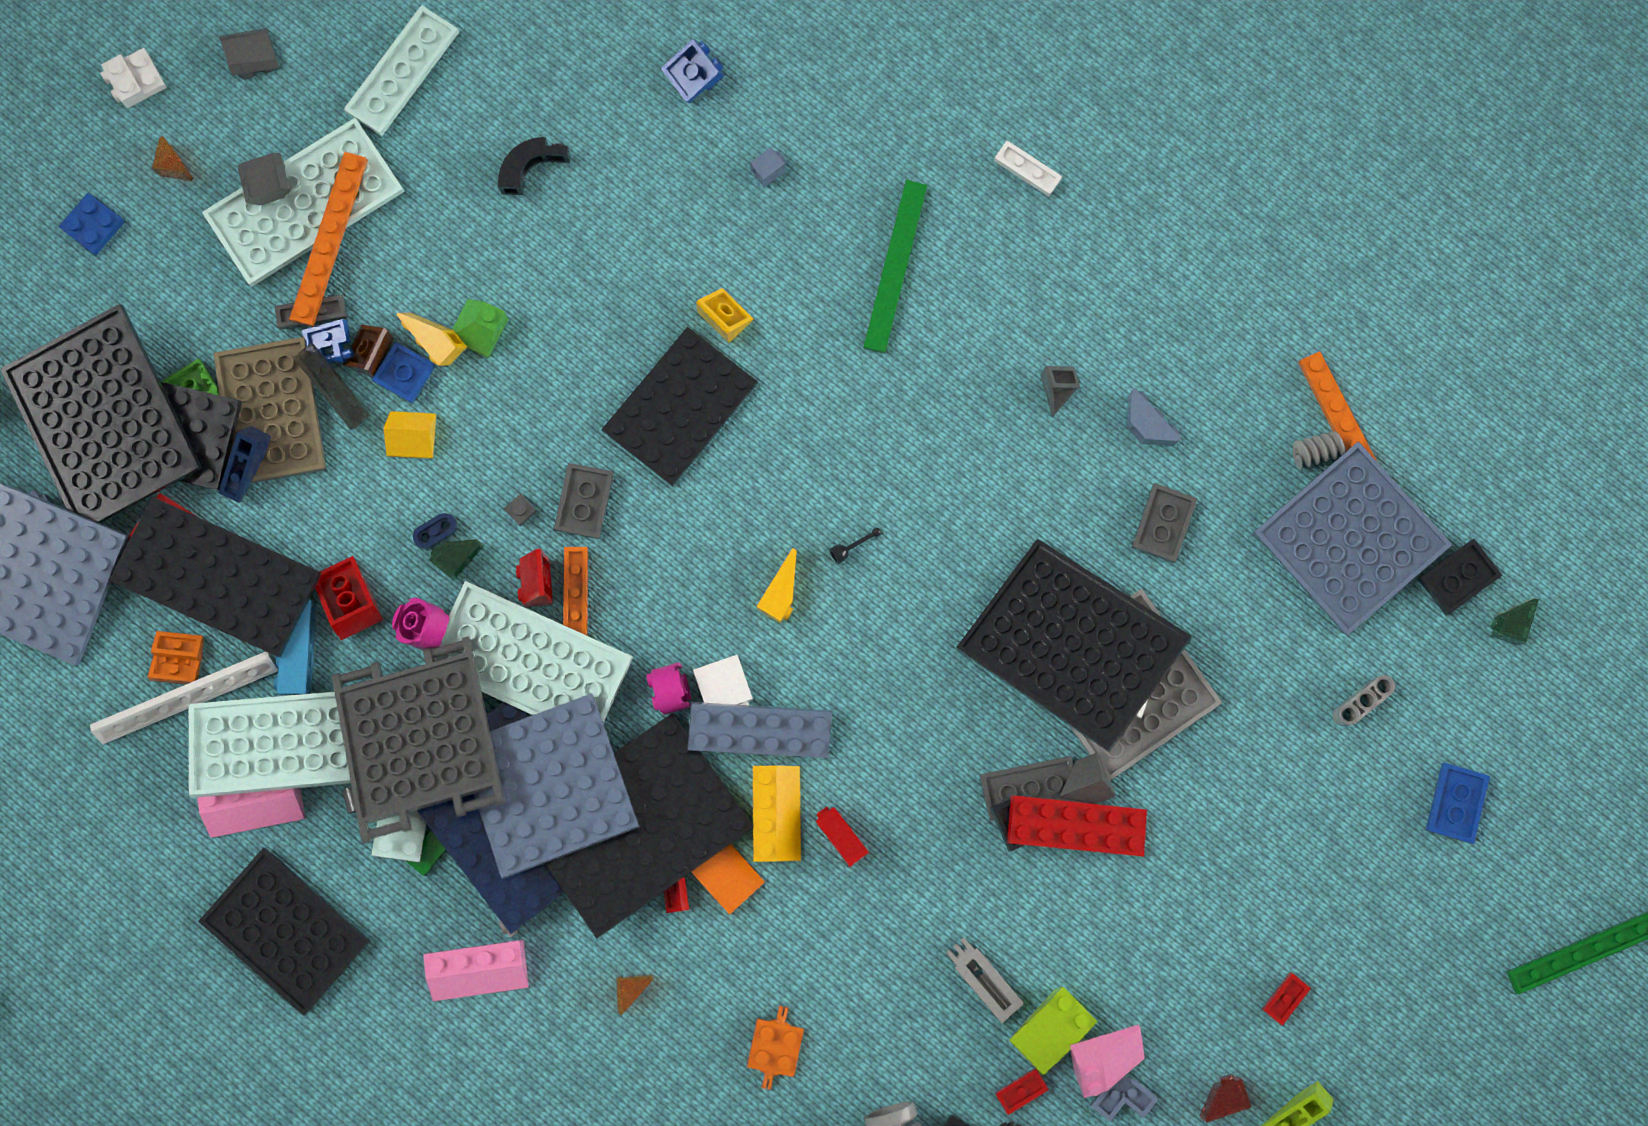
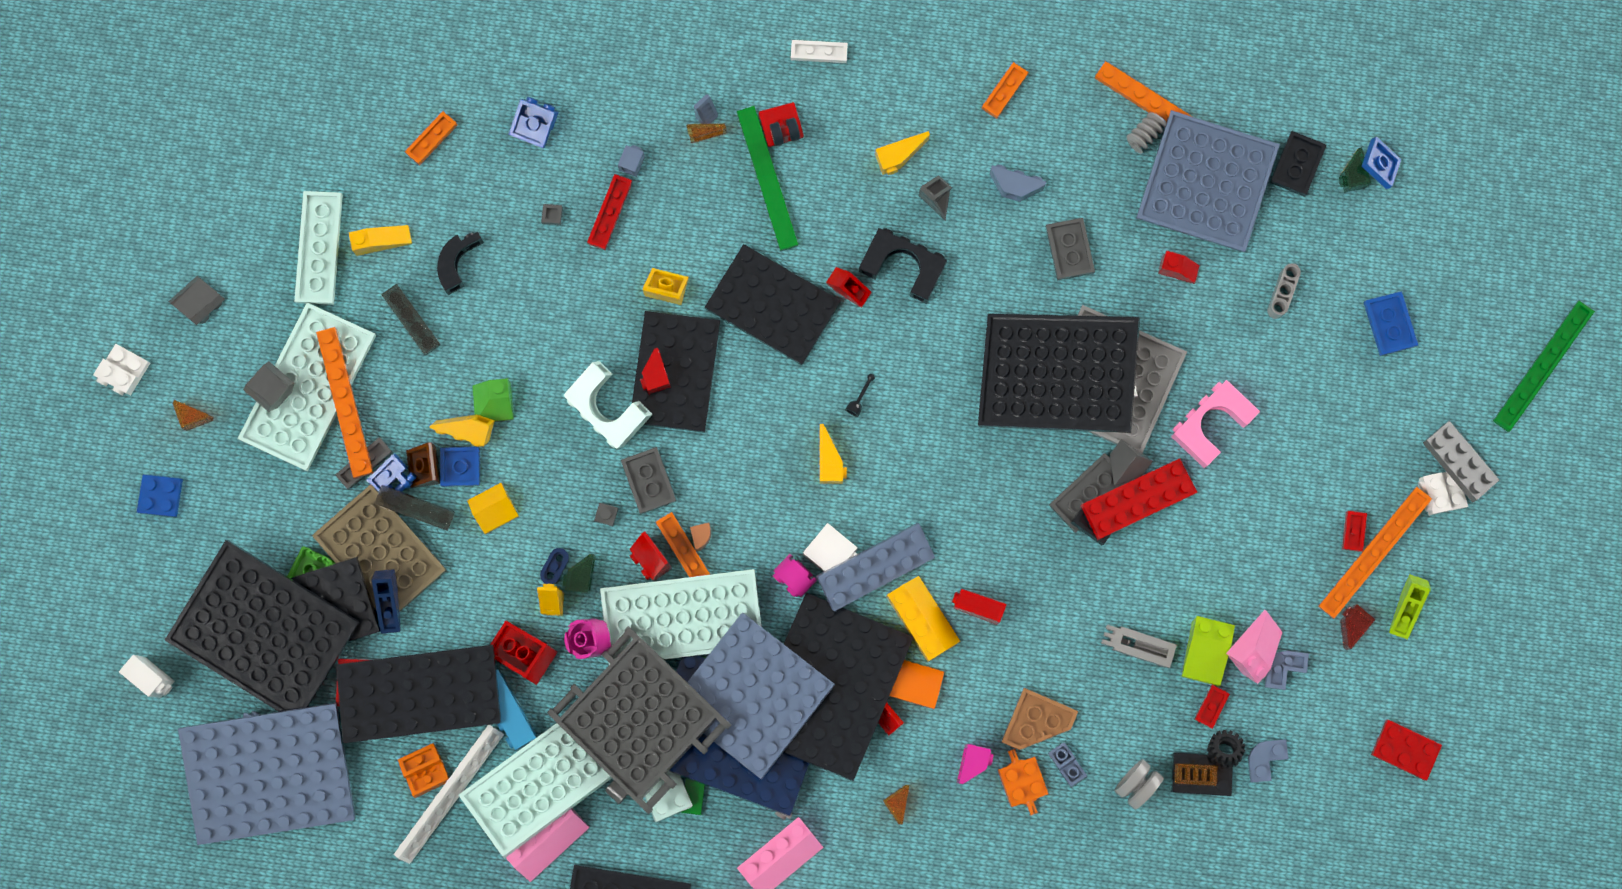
camera: 25 degrees left, 0 degrees up
(407, 562) = (550, 600): none -> yellow slope
(447, 196) = (411, 319): none -> clear smoke plate
(466, 97) = (379, 239): none -> yellow slope
(570, 376) = (583, 398): none -> light aqua arch
(581, 27) = (431, 138): none -> orange plate
(601, 589) = (701, 535): none -> nougat brick
(654, 174) = (551, 214): none -> dark grey plate
(656, 395) = (654, 374): none -> red slope
(714, 206) = (609, 212): none -> red plate
(735, 996) = (973, 762): none -> dark pink slope
(821, 397) = (772, 304): none -> black plate
(829, 992) = (1037, 720): none -> medium nougat plate
(832, 1058) = (1067, 765): none -> sand blue slope
(861, 181) = (701, 132): none -> clear orange slope
(873, 160) = (705, 110): none -> sand blue slope
(910, 425) = (848, 286): none -> red slope
(943, 220) = (781, 124): none -> red plate
(975, 405) = (886, 244): none -> black arch
(1041, 319) = (896, 155): none -> yellow slope
(1196, 320) = (1005, 90): none -> orange plate
(1231, 775) = (1224, 398): none -> bright pink arch
(1267, 609) = (1178, 267): none -> red slope
(1294, 1035) = (1375, 552): none -> orange plate
(1406, 1015) = (1444, 493): none -> white plate
(1445, 995) = (1461, 461): none -> plate
(1550, 628) = (1381, 163): none -> blue plate

